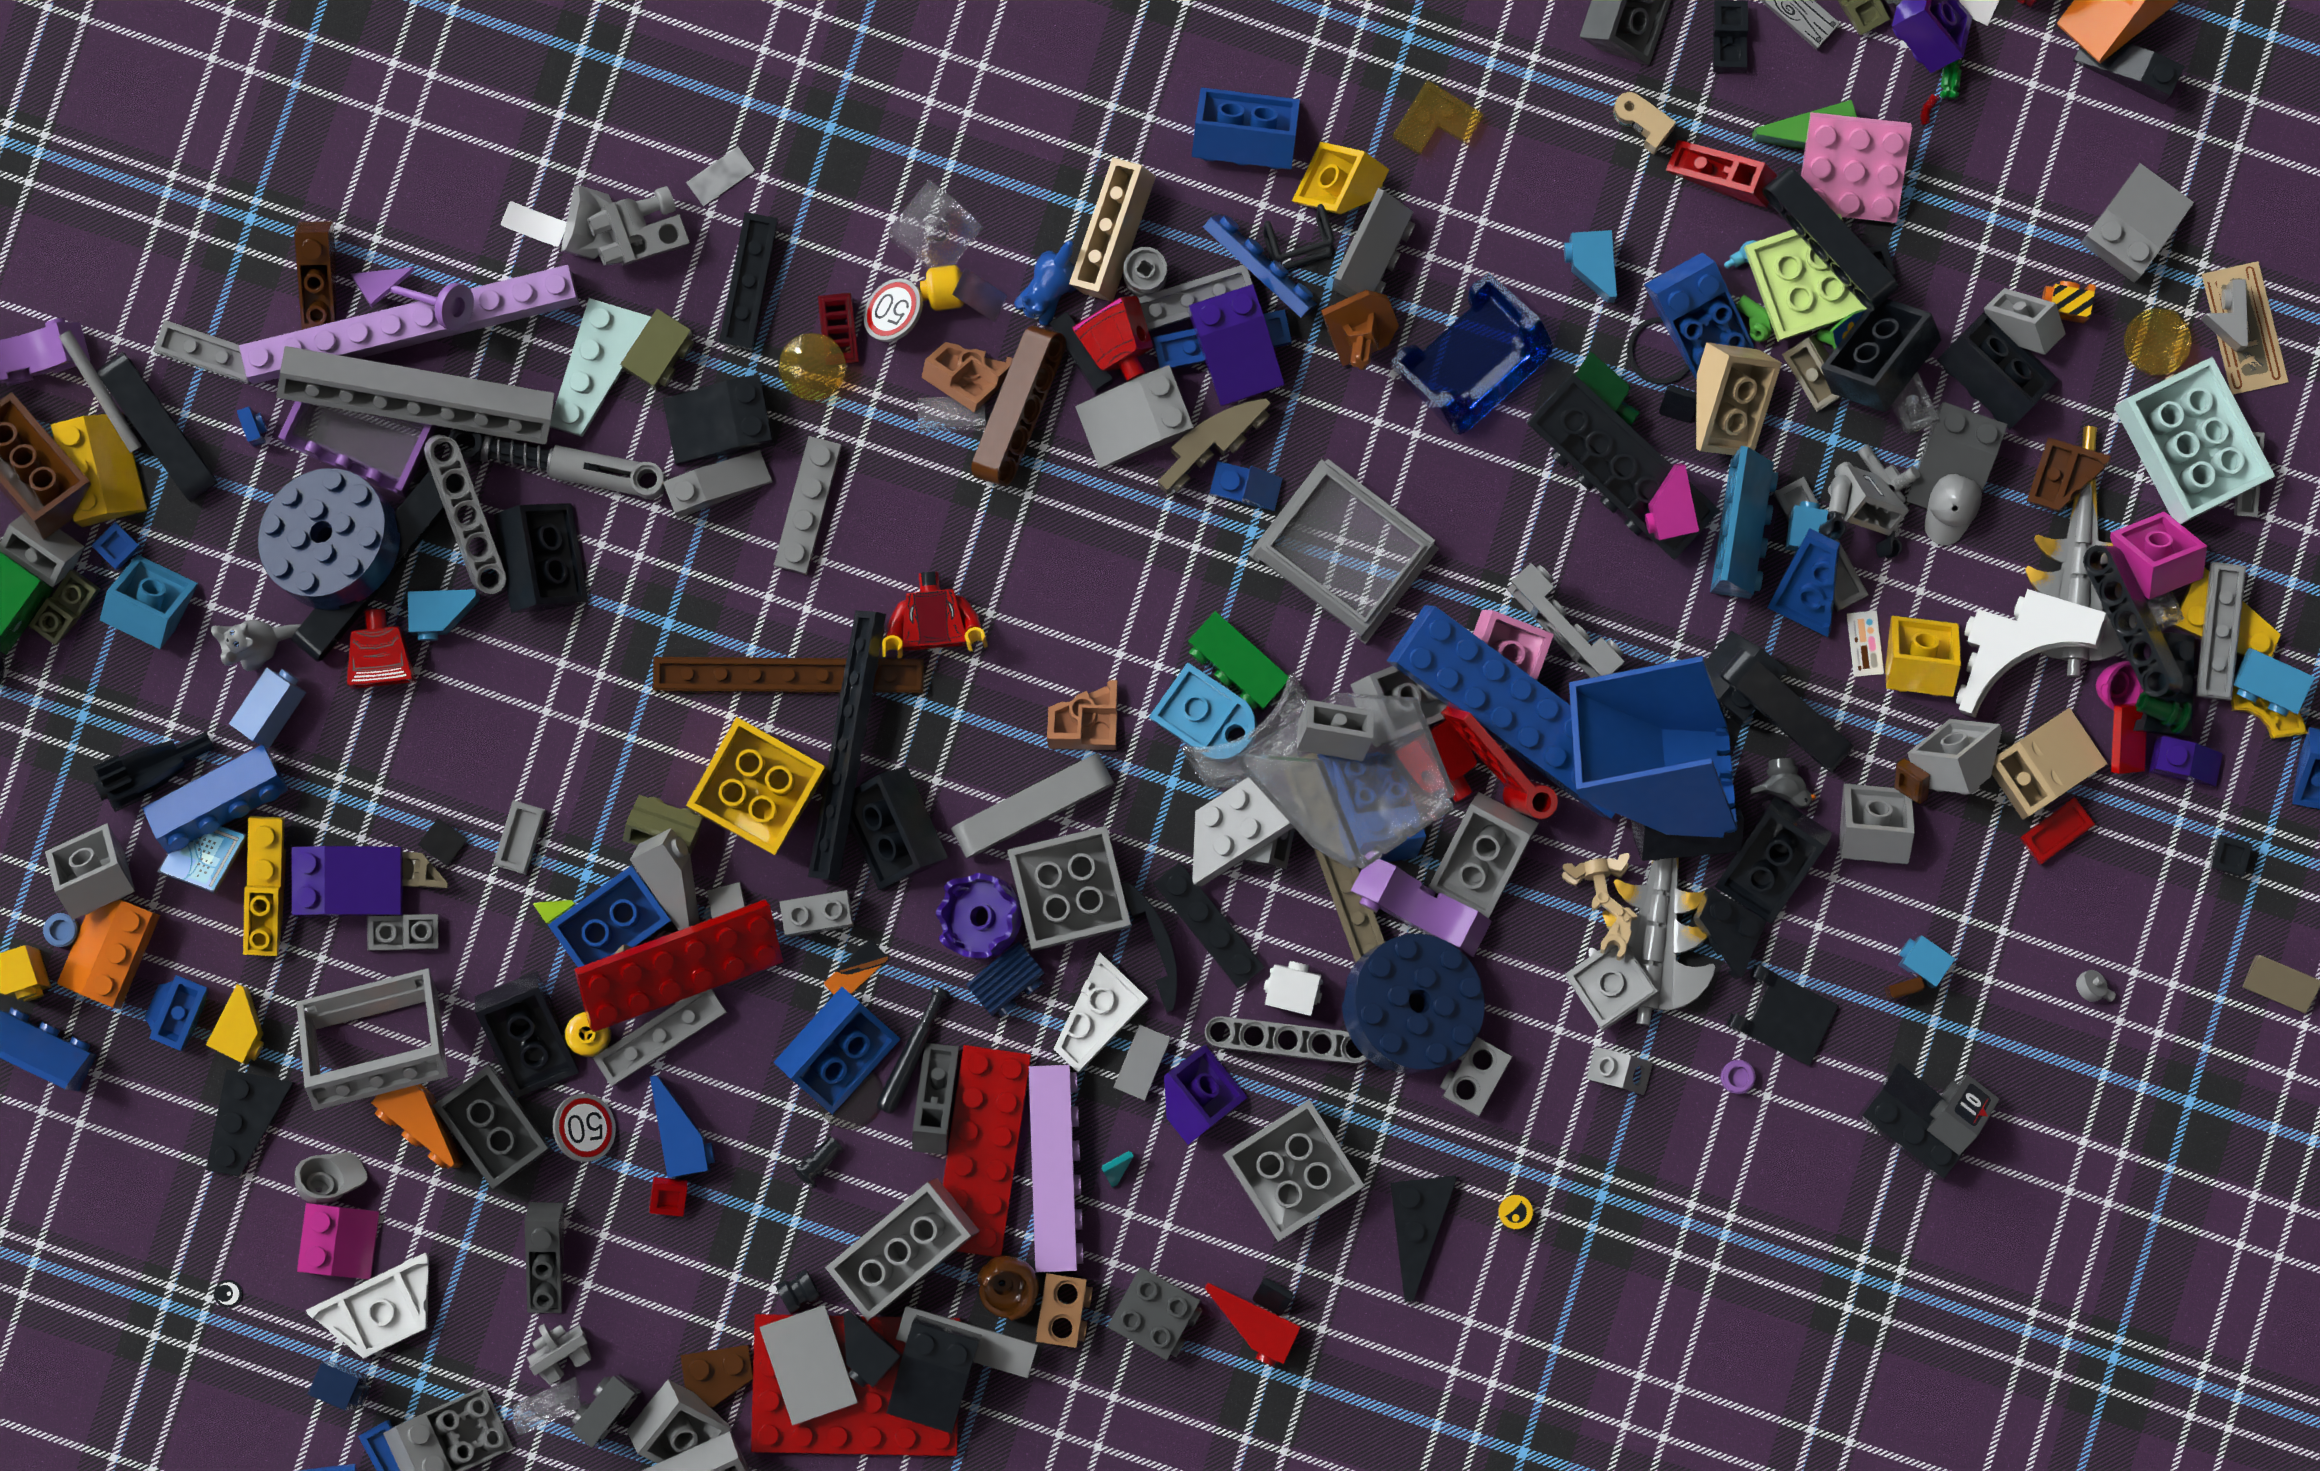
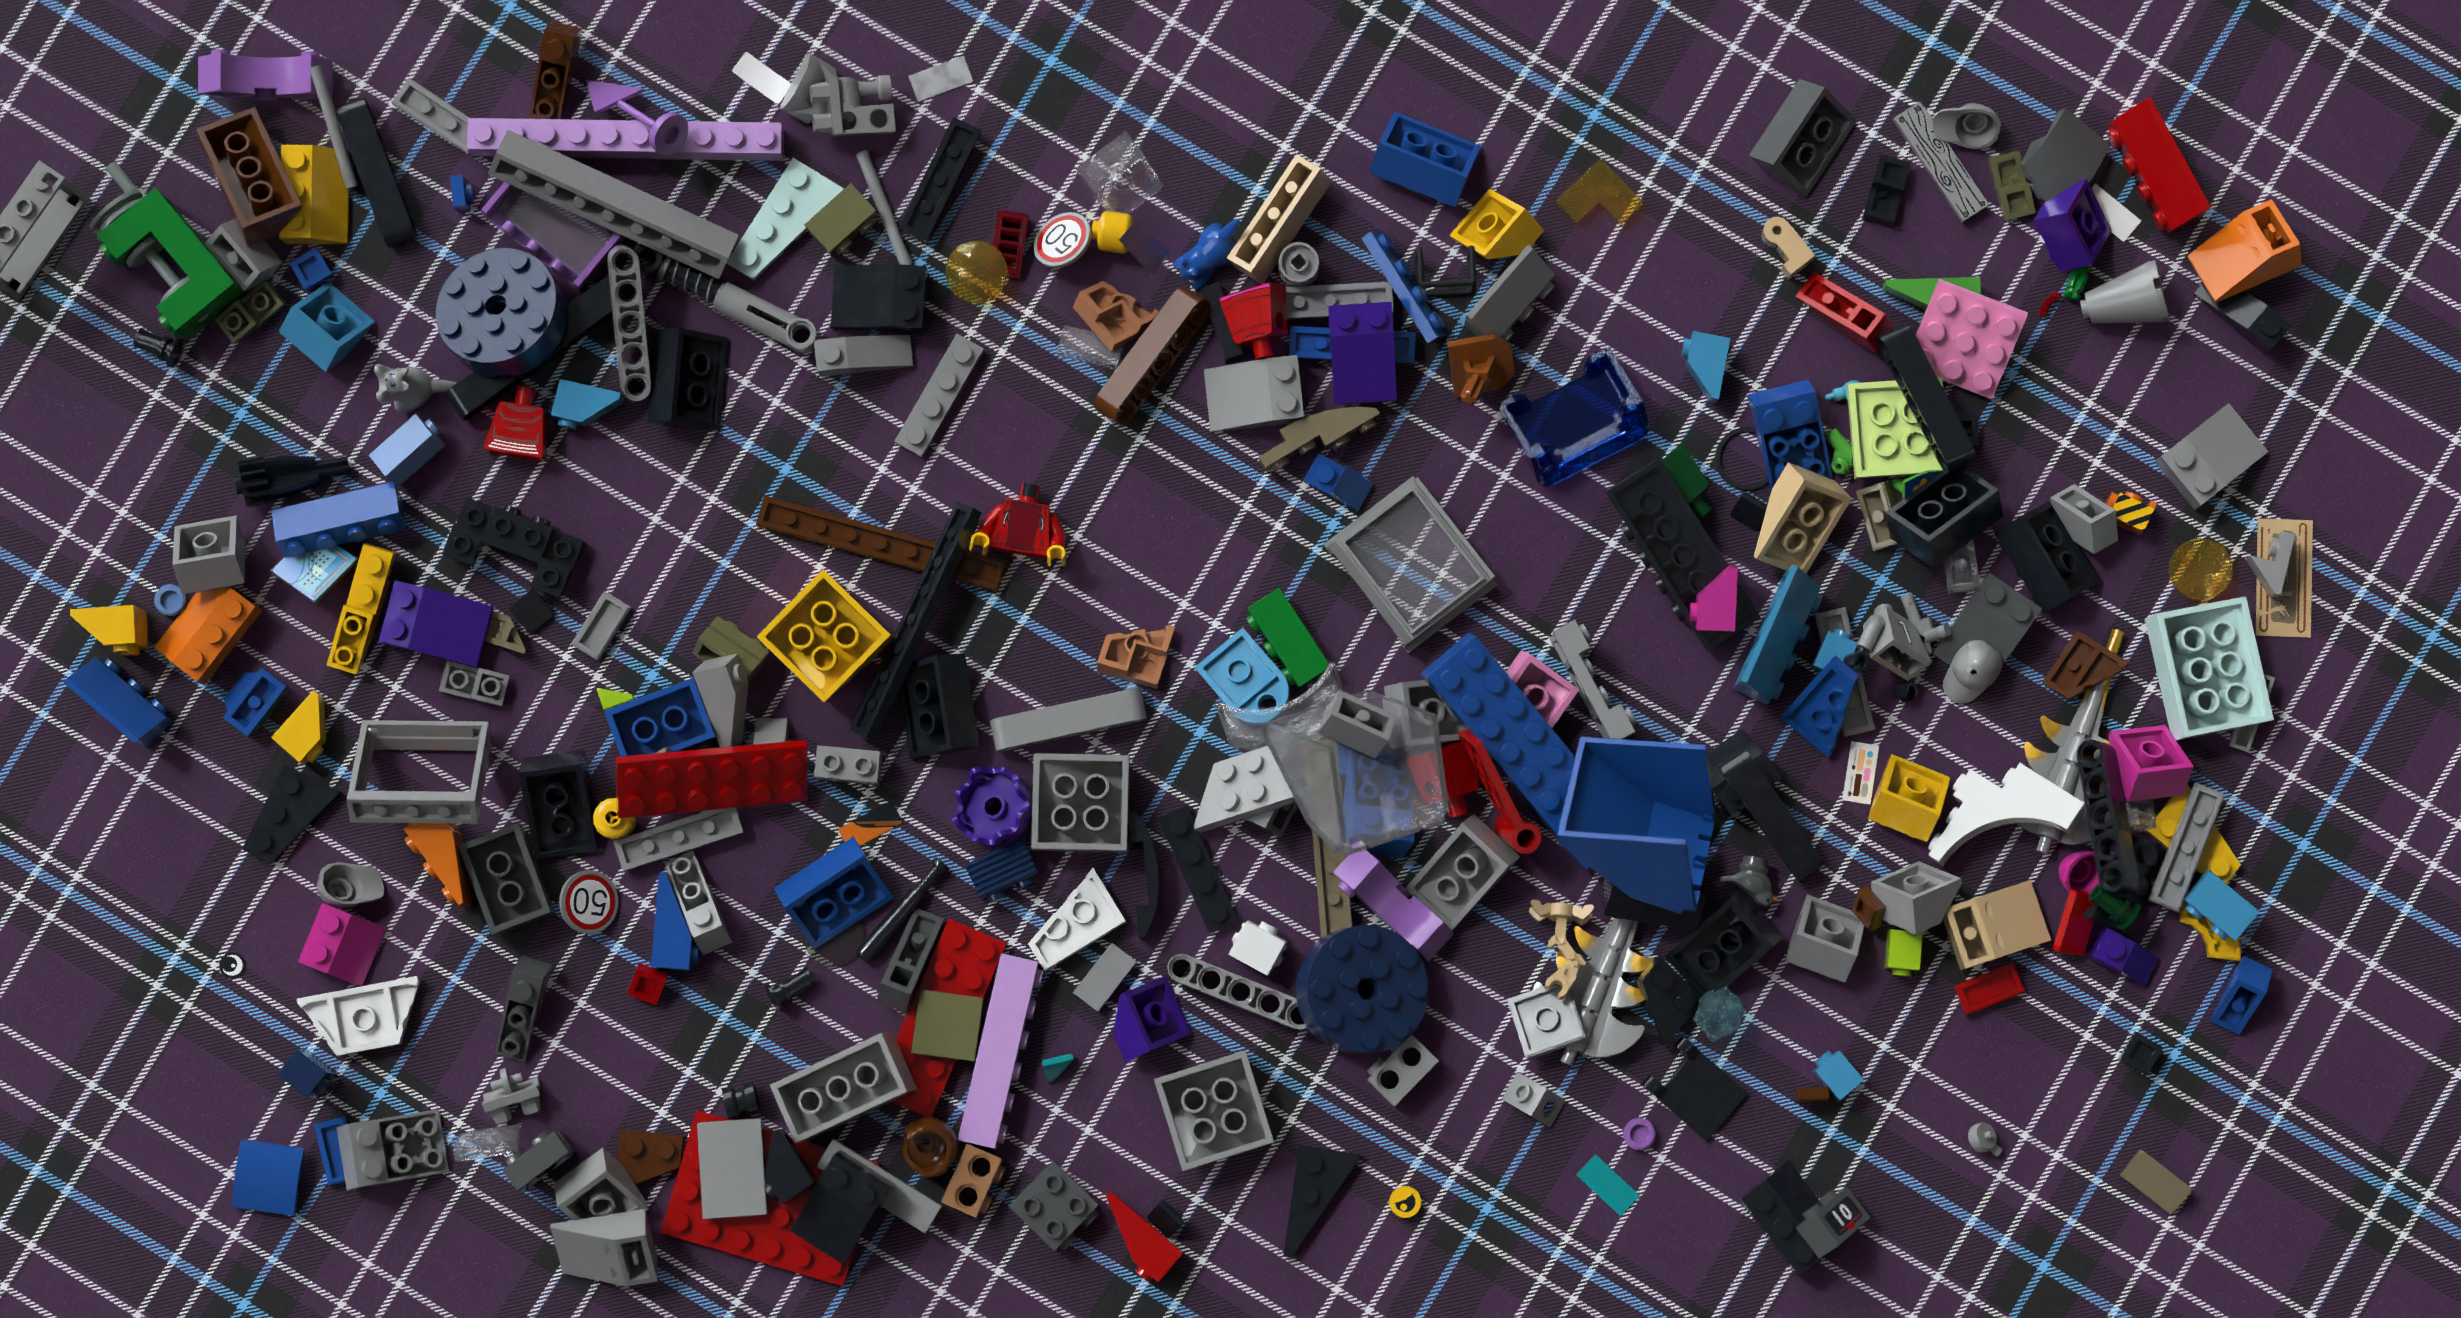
camera: 20 degrees right, 0 degrees up
(407, 767) = (518, 536): none -> black bracket
(697, 326) = (883, 208): none -> light grey bar
(698, 1098) = (698, 902): none -> light grey slope
(992, 1156) = (947, 1025): none -> olive tile
(1719, 1138) = (1608, 1185): none -> teal sticker
(1787, 930) = (1719, 1013): none -> clear light blue brick
(1959, 816) = (1903, 952): none -> lime brick
(2009, 82) = (2128, 298): none -> light grey cone

